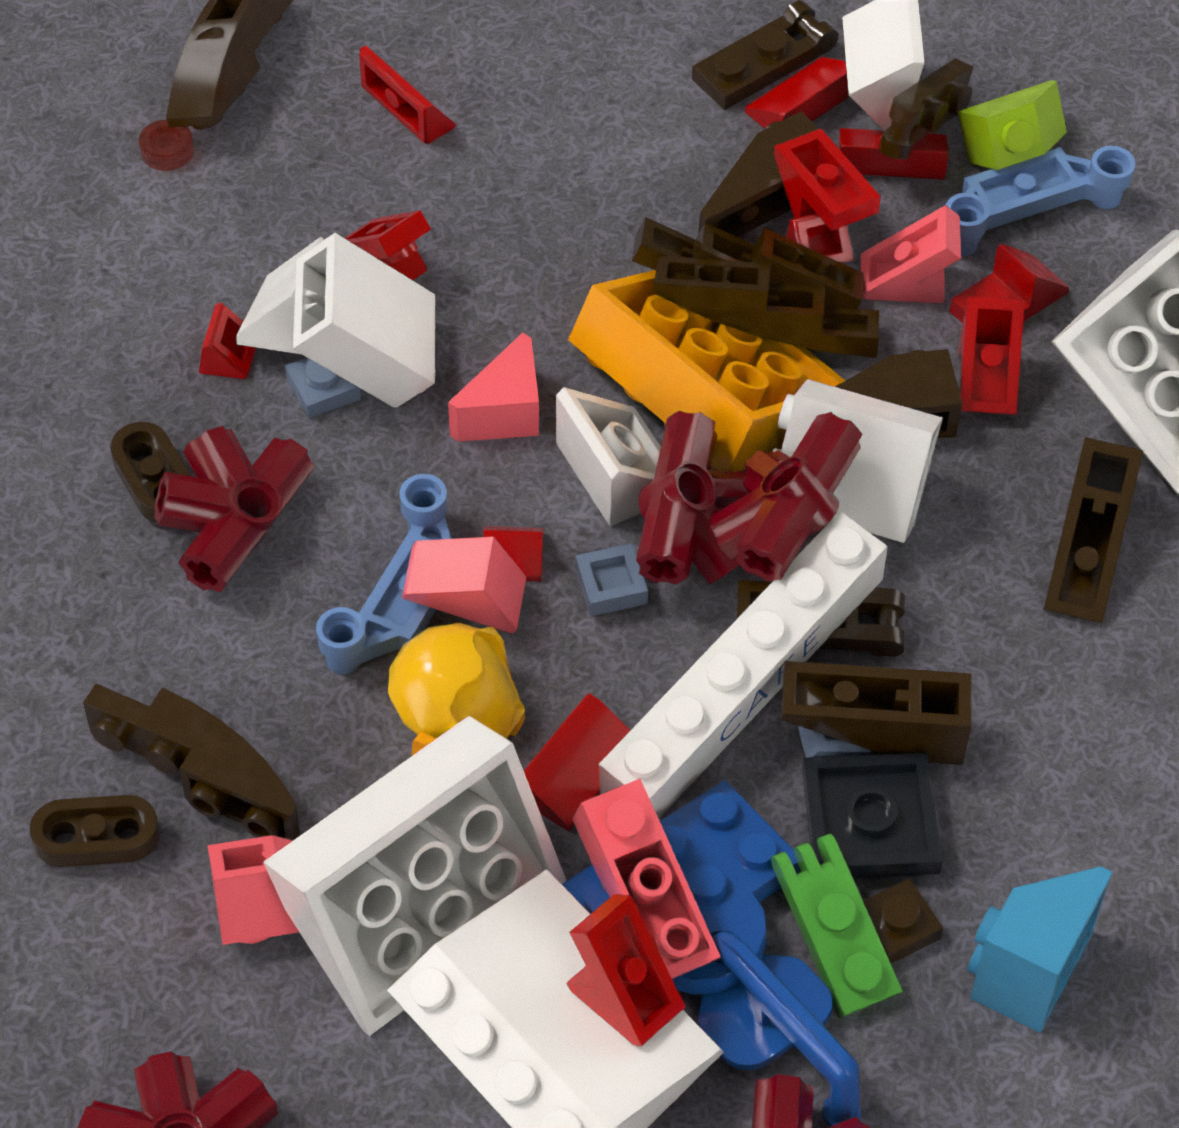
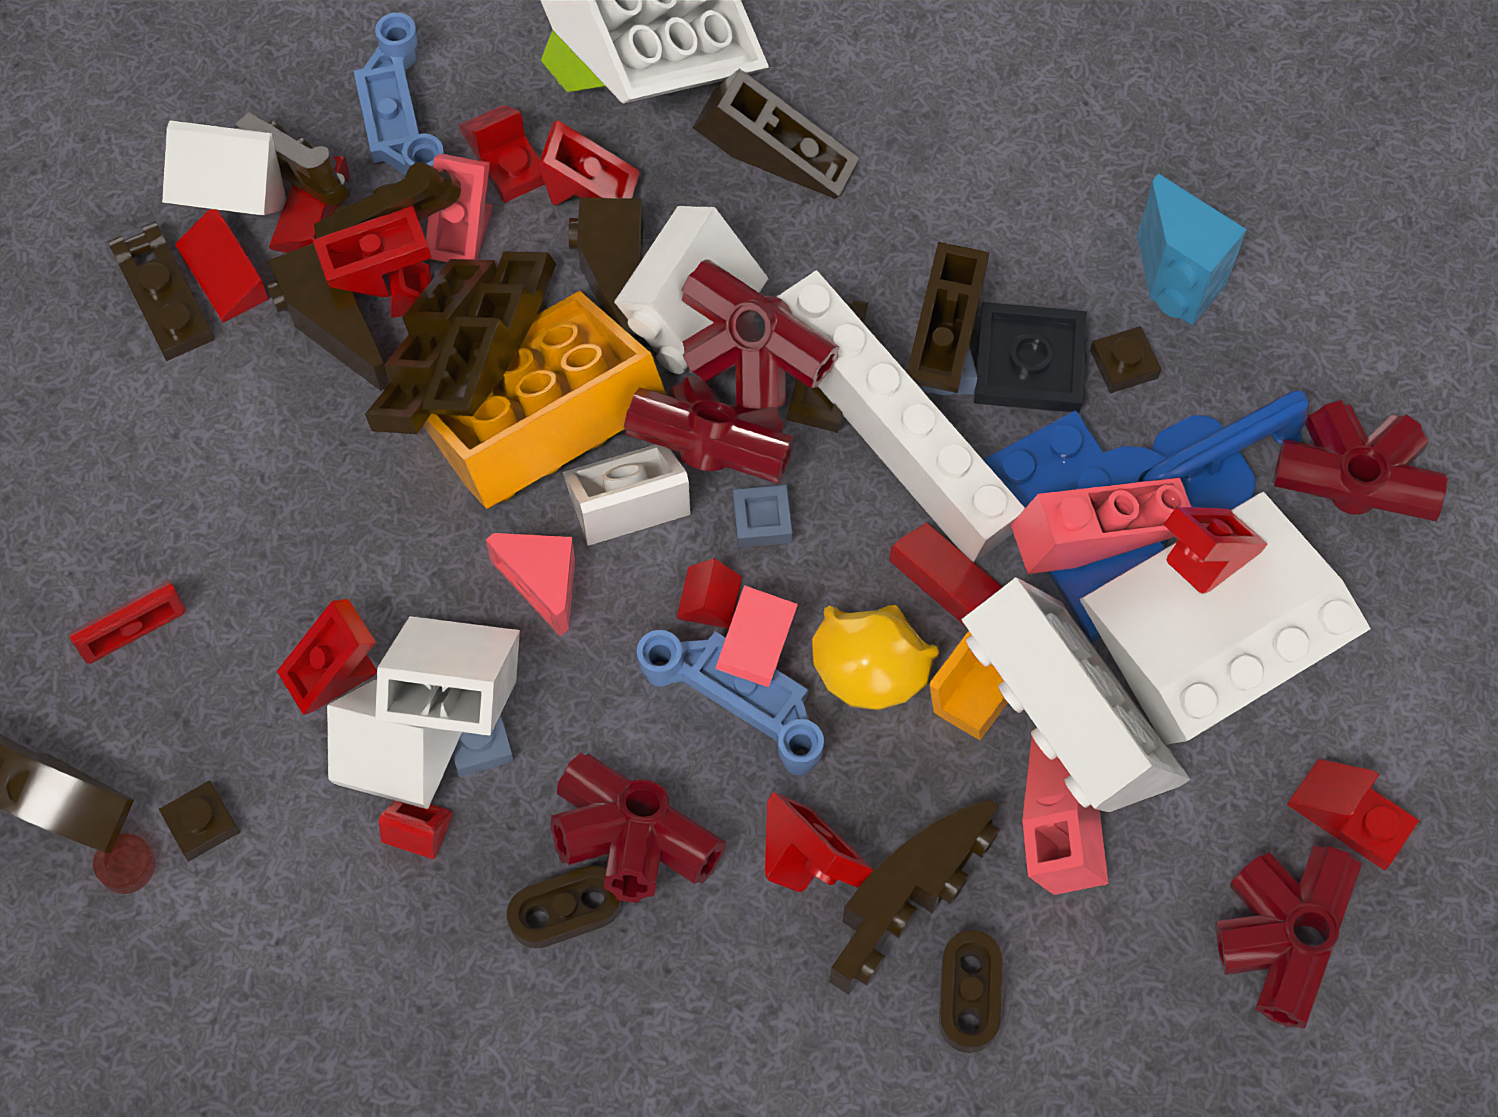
camera: 80 degrees left, 10 degrees up
(213, 188) = (199, 820): none -> dark brown plate
(233, 656) = (805, 847): none -> red slope
(836, 927) = (1137, 398): bright green hinge -> none
(898, 191) = (422, 188): none -> dark brown plate
(1013, 126) = (324, 102): lime slope -> none

